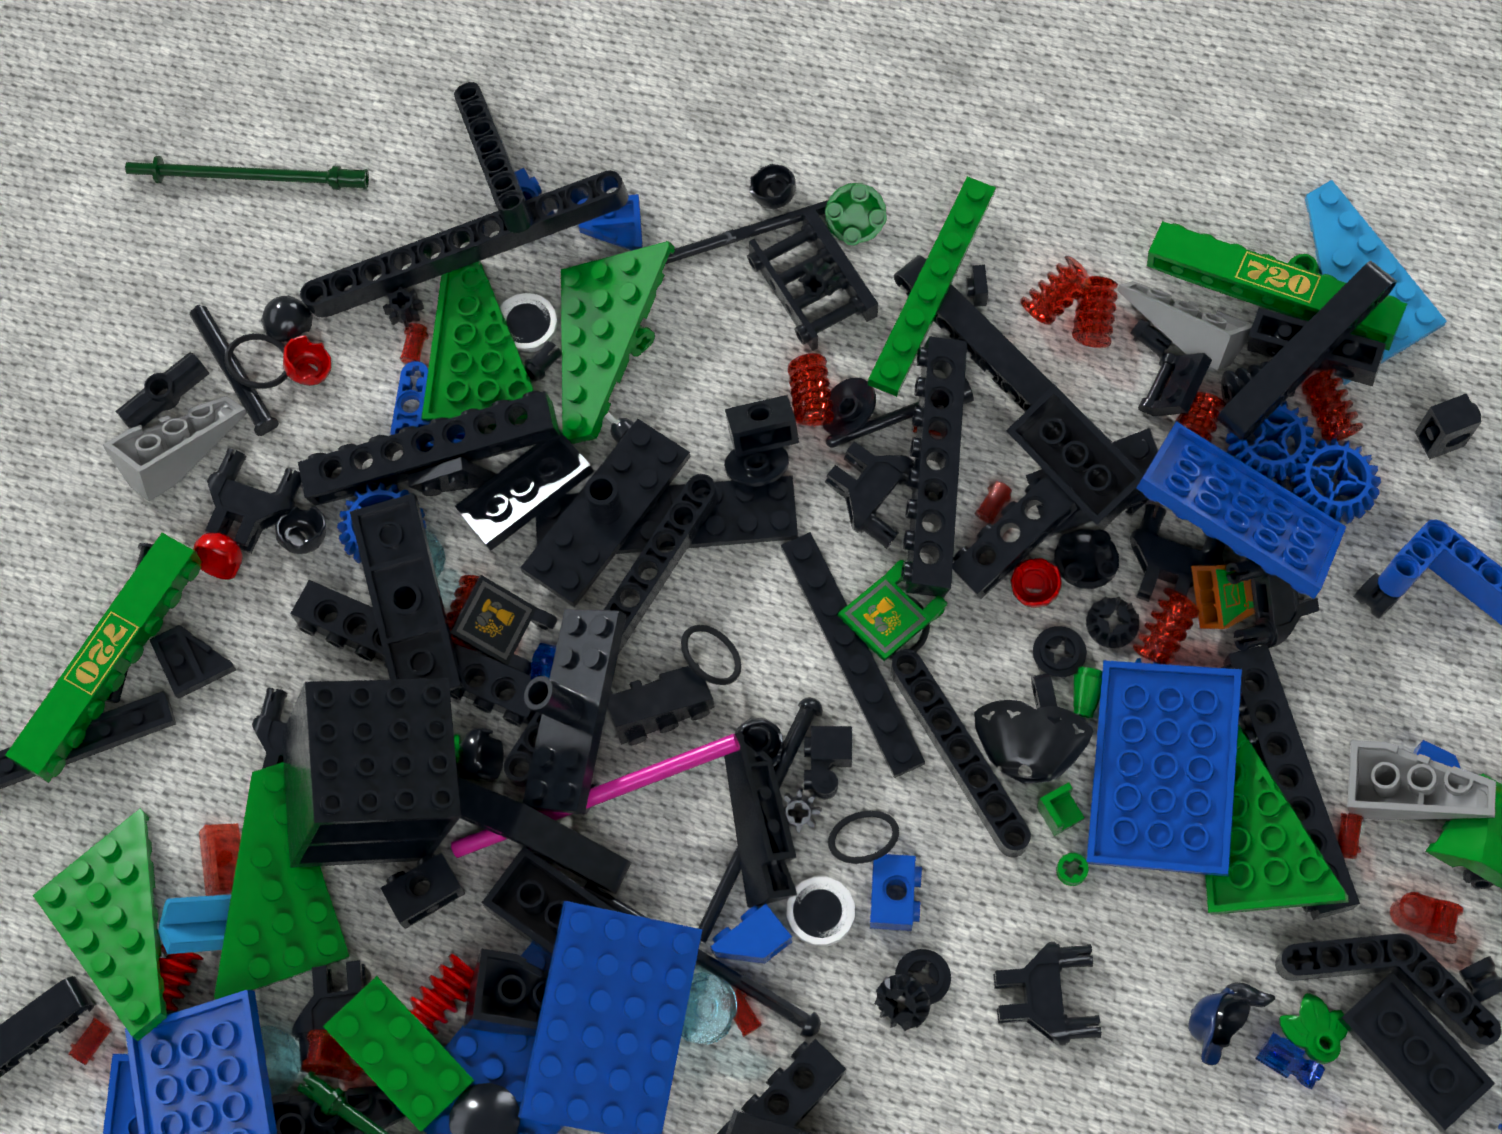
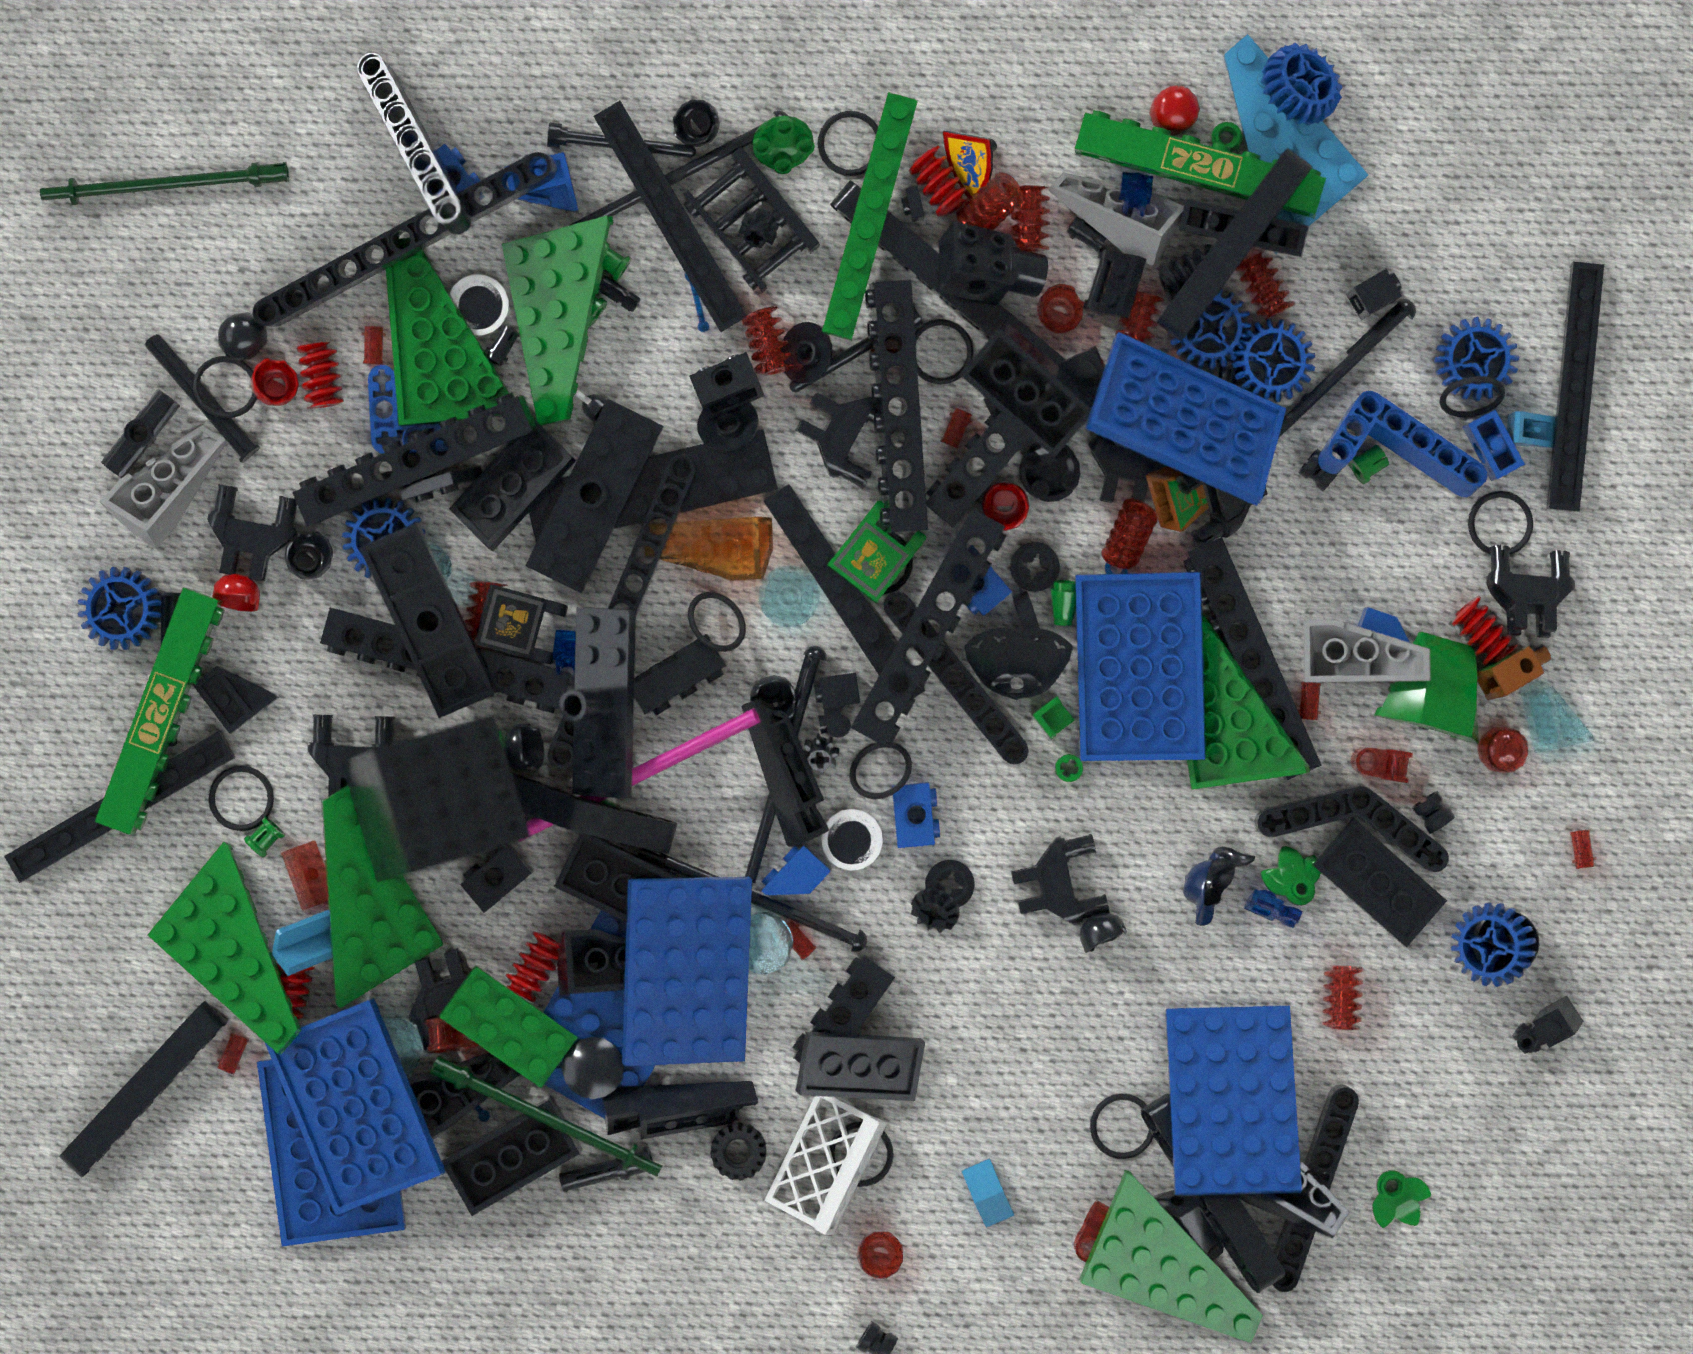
camera: 15 degrees left, 20 degrees up
(69, 556) = (113, 596): none -> blue gear
(177, 797) = (212, 792): none -> black tyre
(184, 809) = (264, 837): none -> green bush
(353, 360) = (320, 375): none -> red piece
(399, 314) = (347, 305): black gear -> none
(638, 182) = (561, 136): none -> black piece
(666, 329) = (618, 294): none -> black axle
(669, 300) = (615, 263): none -> green bush
(730, 578) = (722, 547): none -> clear orange wedge
(733, 263) = (670, 216): none -> black plate
(743, 325) = (703, 326): none -> clear blue hinge
(792, 645) = (789, 596): none -> clear light blue tile
(900, 210) = (846, 172): none -> black tyre
(982, 457) = (967, 339): none -> black tyre
(994, 637) = (992, 592): none -> blue brick
(1003, 591) = (975, 526): none -> black brick
(1005, 268) = (938, 182): none -> red piece
(1040, 250) = (970, 158): none -> shield
(1048, 344) = (987, 265): none -> black brick
(1089, 1048) = (1100, 929): none -> black hair
(1099, 628) = (1071, 518): black gear -> none
(1116, 390) = (1065, 297): none -> clear red hair
(1206, 301) = (1135, 191): none -> clear blue plate
(1253, 233) = (1175, 109): none -> red hair
(1385, 224) = (1301, 84): none -> blue gear
(1426, 599) = (1368, 463): none -> green bush
(1475, 452) = (1402, 309): none -> black bar

